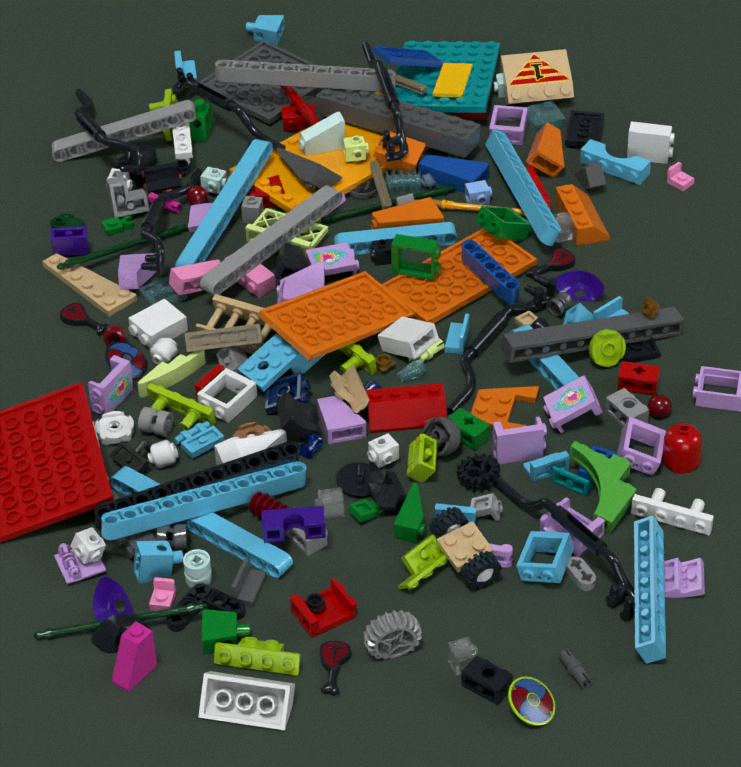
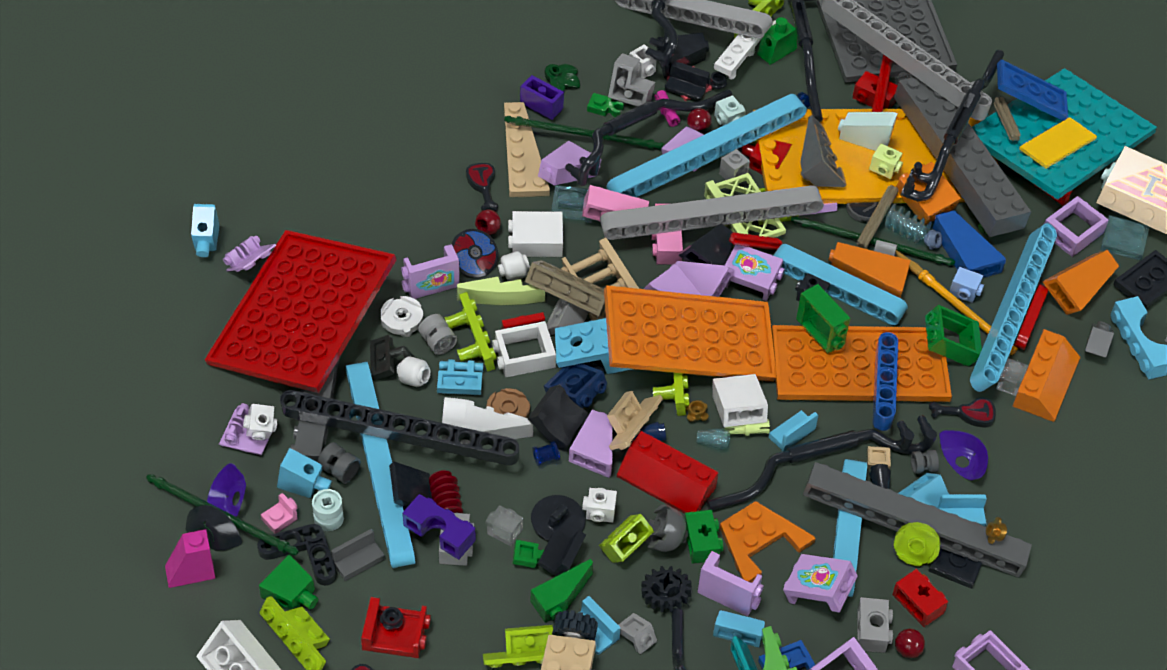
camera: 35 degrees right, 10 degrees up
(201, 500) = (391, 446): medium azure beam -> none
(240, 518) = (408, 483): none -> black tile
(317, 242) = (755, 241): none -> red axle

